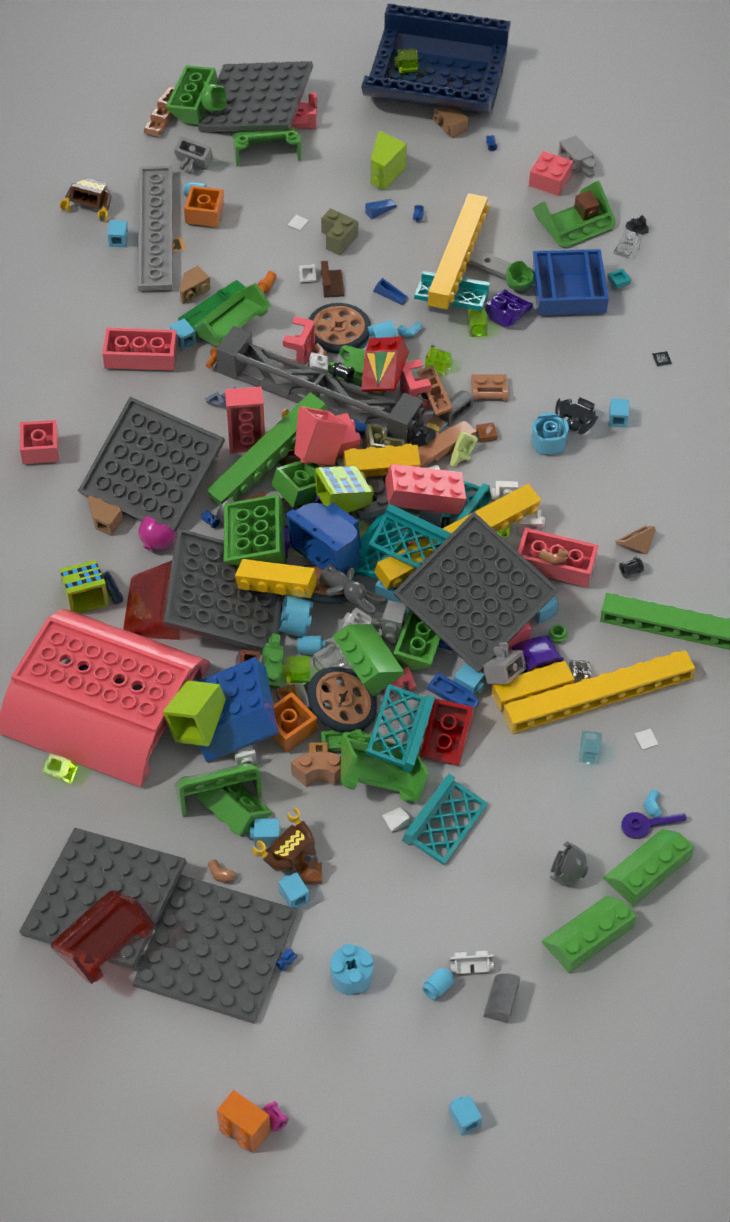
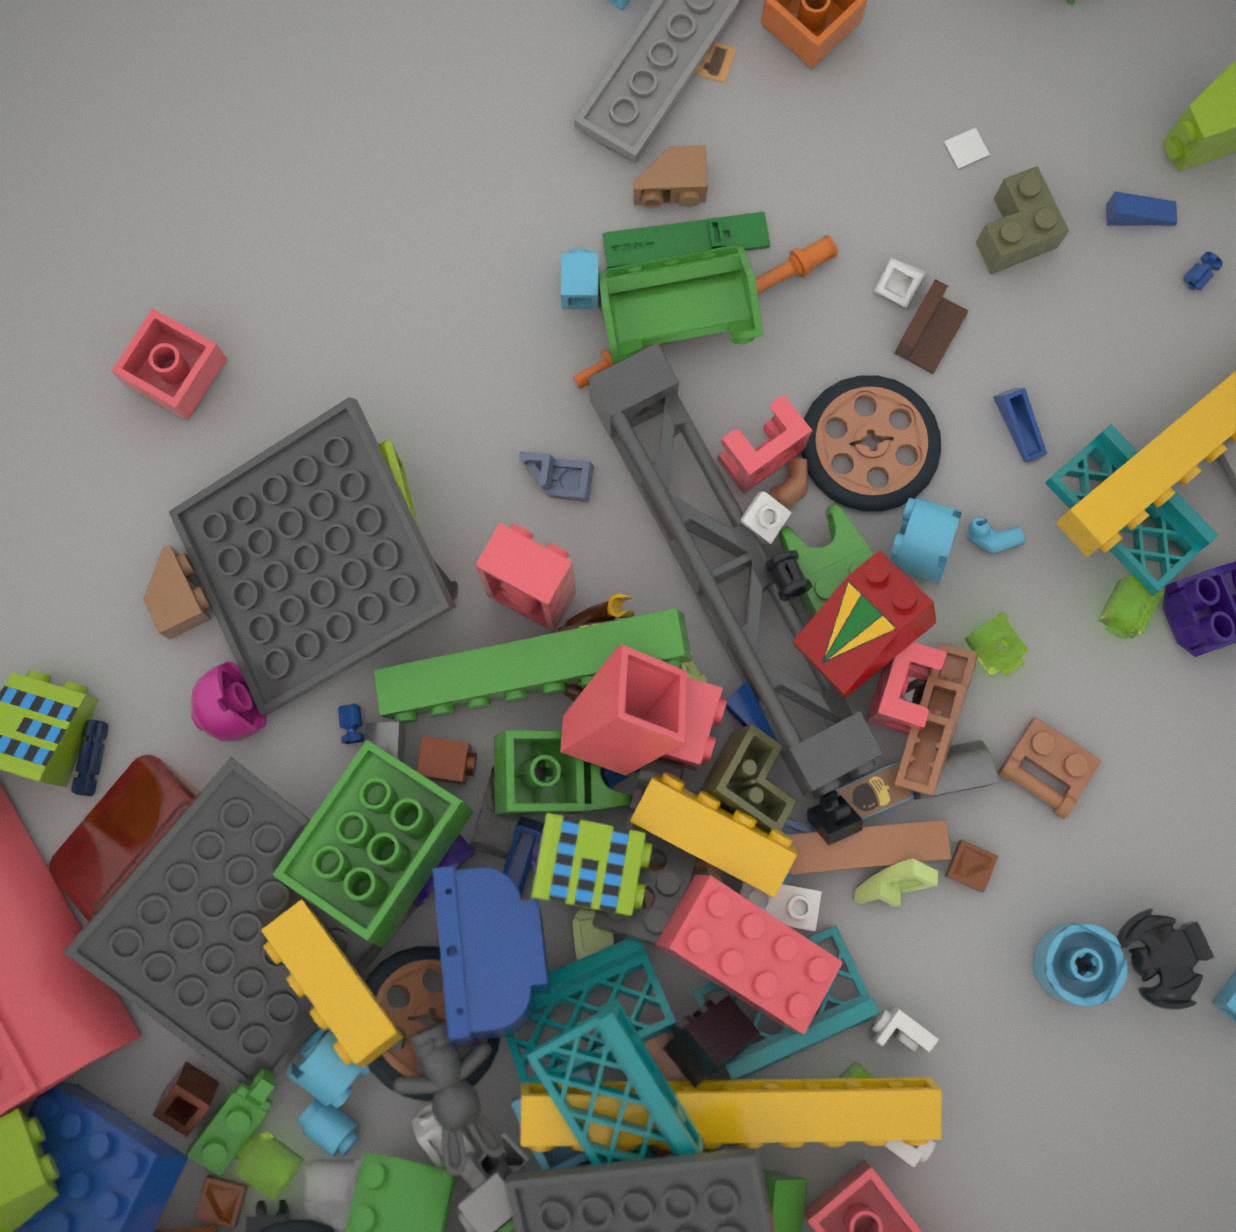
camera: 35 degrees right, 25 degrees up
(140, 349) = (477, 269): coral brick -> none

